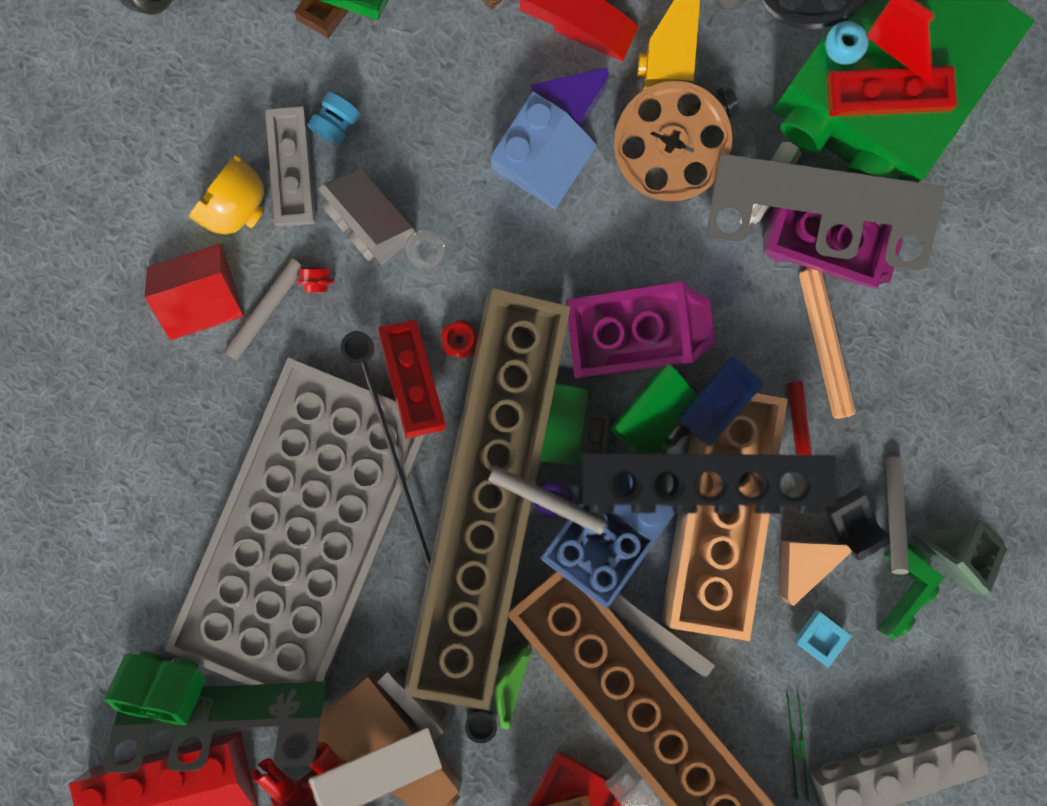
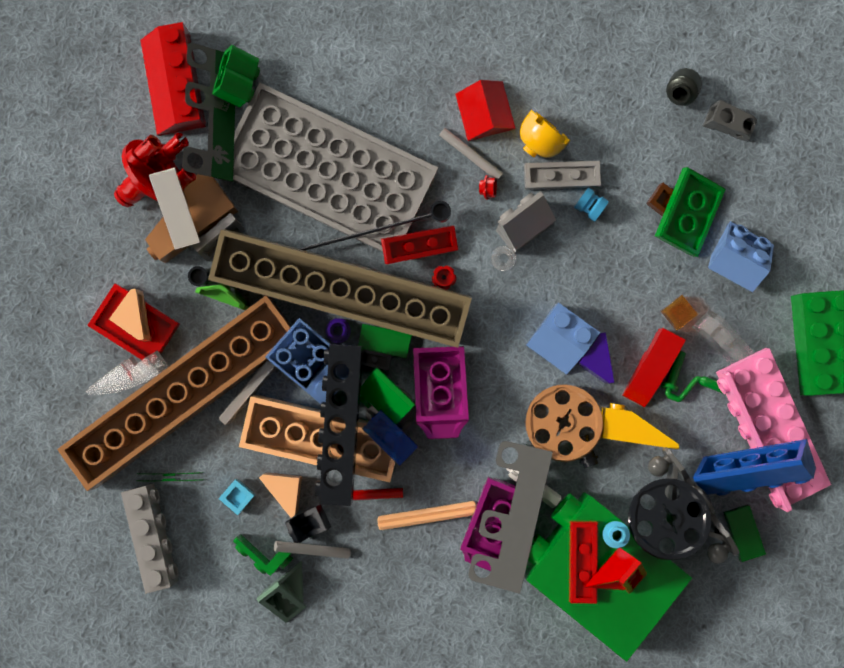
camera: 90 degrees right, 0 degrees up
(547, 500) = (335, 323): light grey bar -> none

